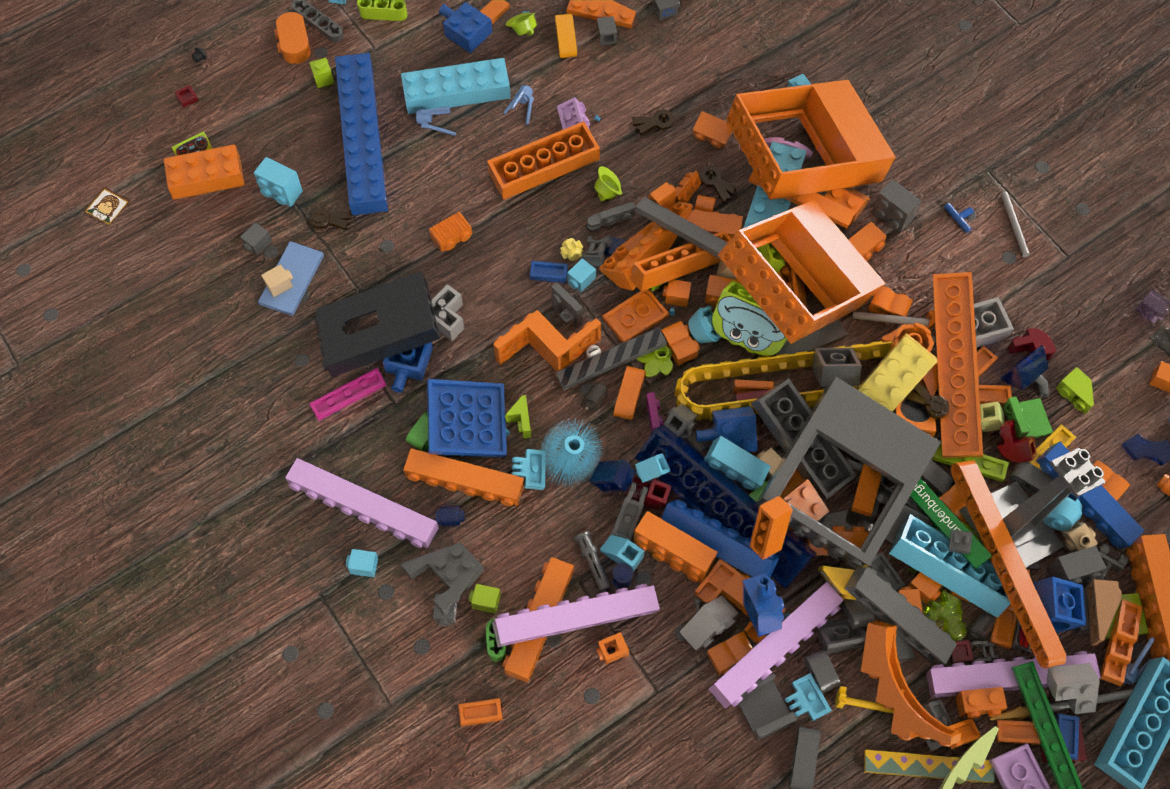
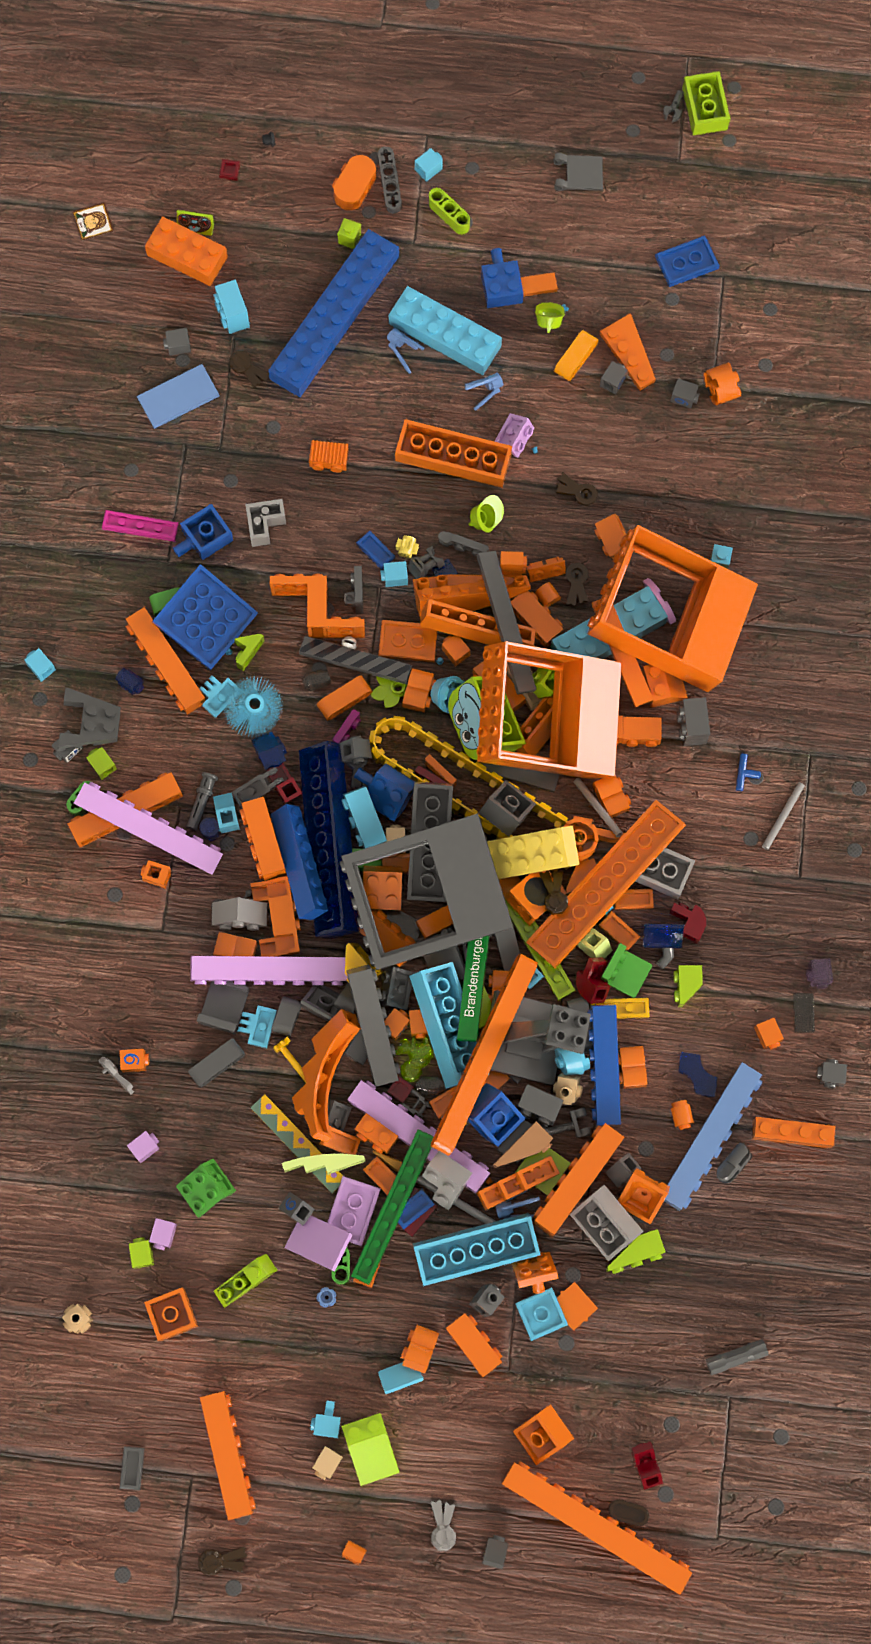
camera: 40 degrees right, 10 degrees up
(277, 280) = (163, 391): tan brick -> none
(362, 503) = (77, 619): lavender brick -> none
(404, 321) = (222, 502): black panel -> none
(480, 712) = (28, 839): orange tile -> none
(652, 468) = (300, 768): medium azure brick -> none
(763, 604) = (278, 931): blue brick -> none
(770, 527) = (329, 882): orange brick -> none
(960, 541) = (464, 1011): dark grey tile -> none

